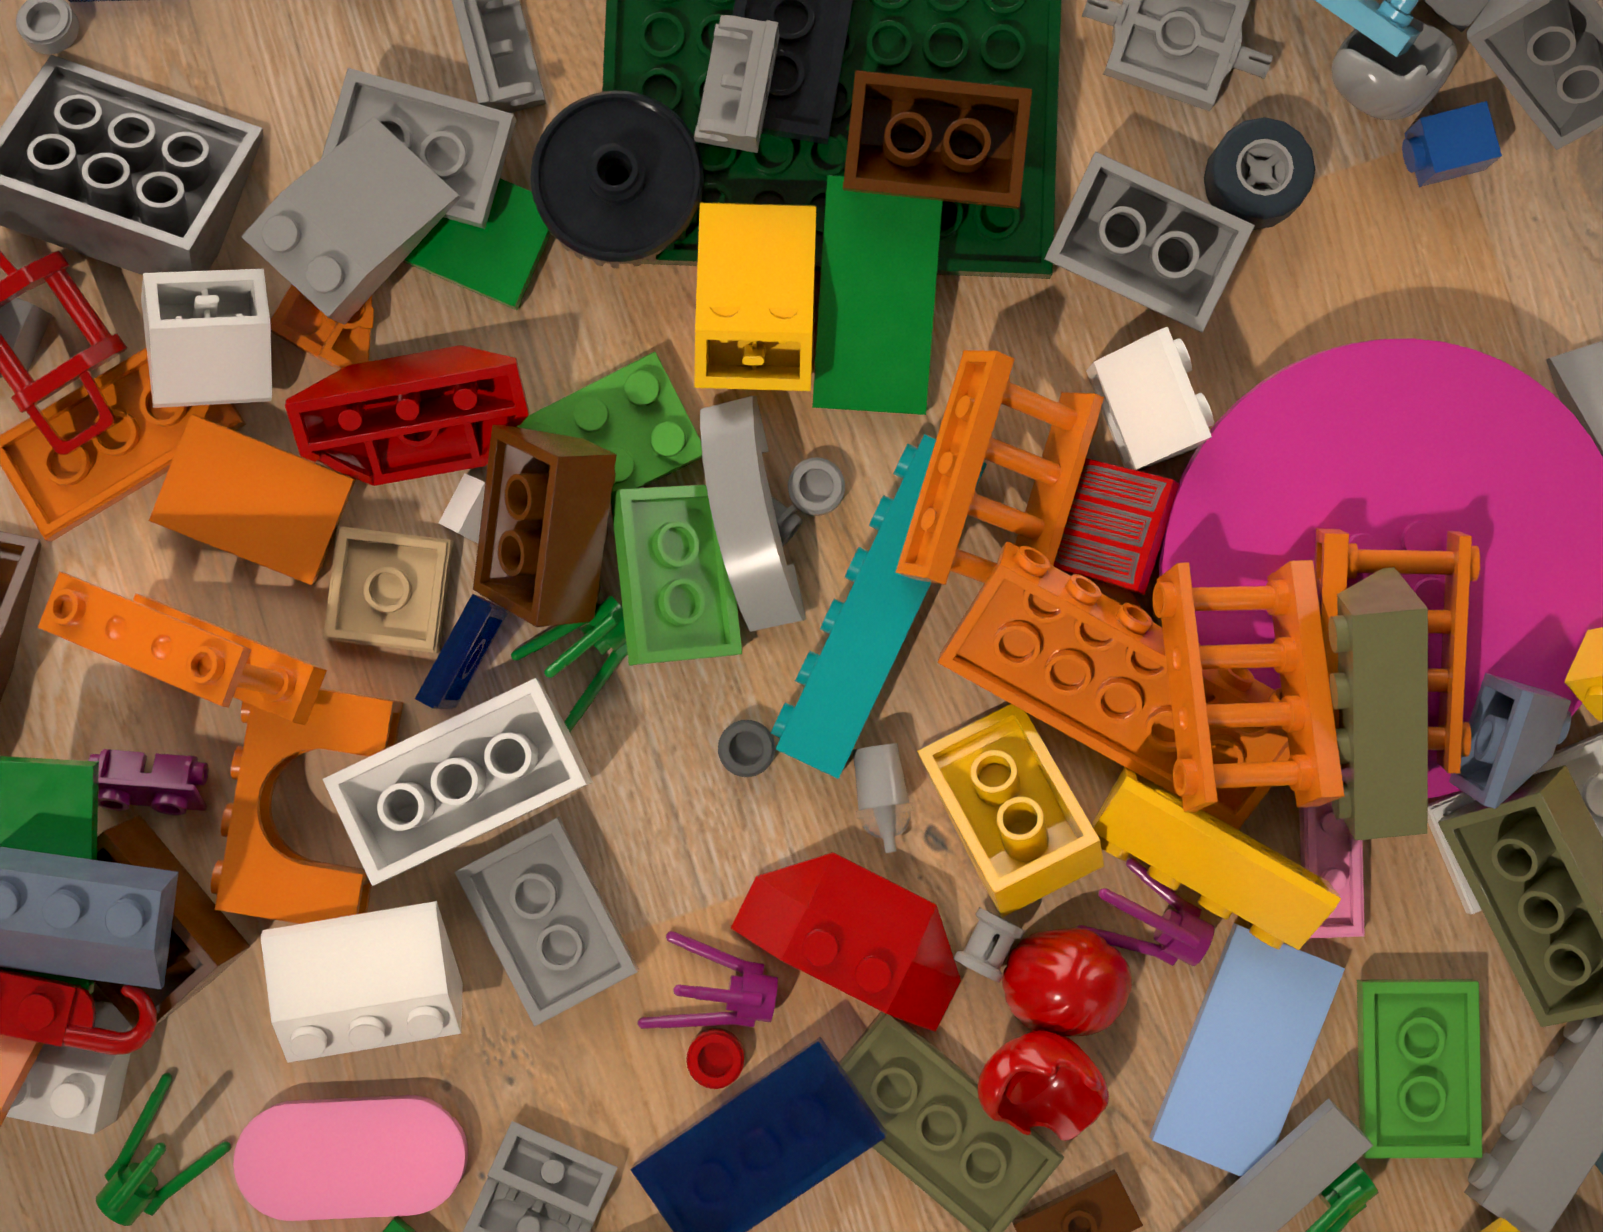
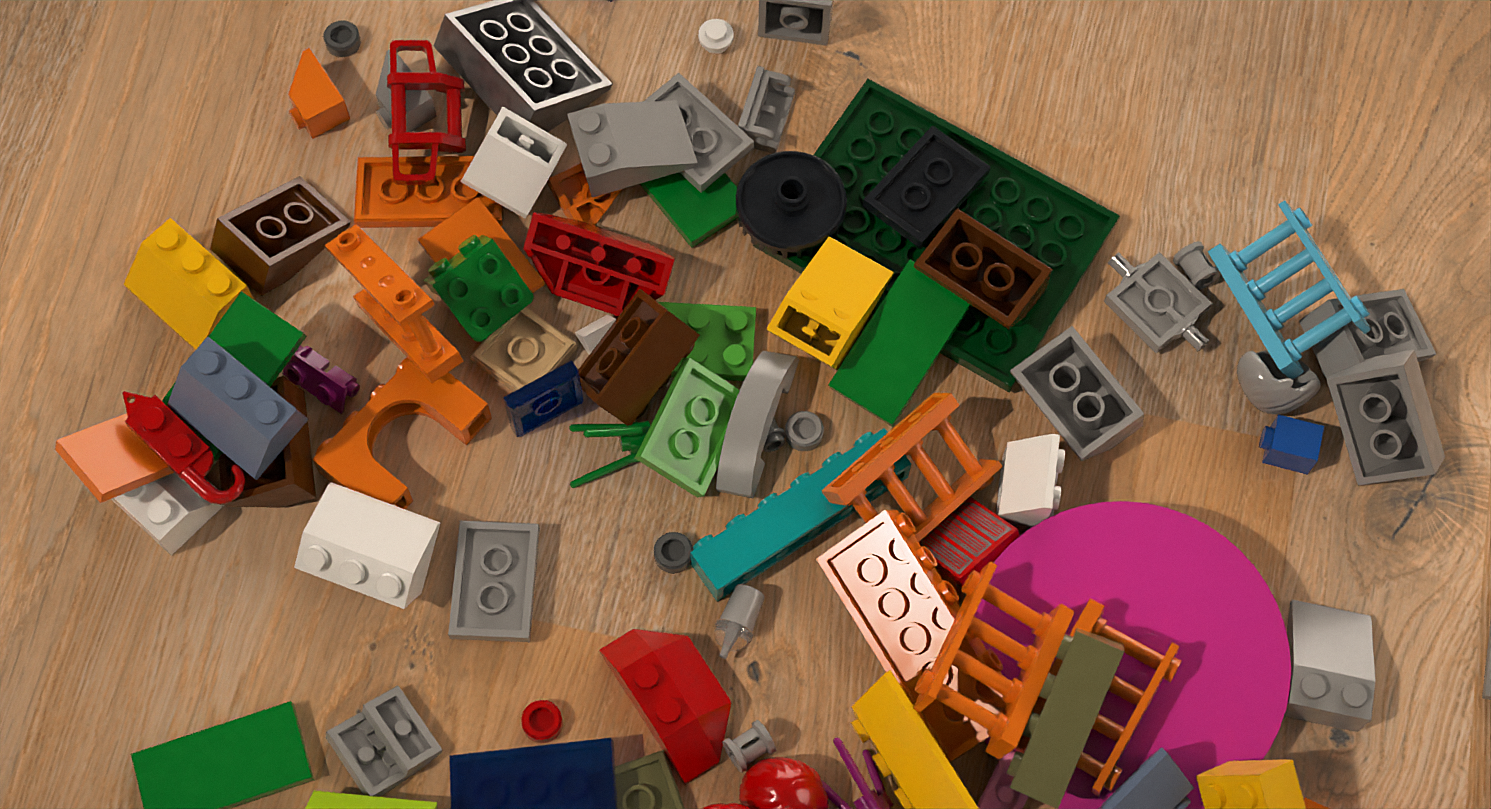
camera: 25 degrees right, 20 degrees down
(133, 1187) = (155, 591): green plant -> none
(274, 545) = (479, 287): none -> green bracket
(350, 1158) = (290, 653): bright pink tile -> none
(457, 781) = (495, 469): white slope -> none
(738, 83) = (888, 186): light grey hinge -> none
(747, 996) = (586, 691): magenta plant -> none
(1012, 809) = (811, 675): yellow slope -> none
(1274, 157) = (1175, 388): black wheel -> none

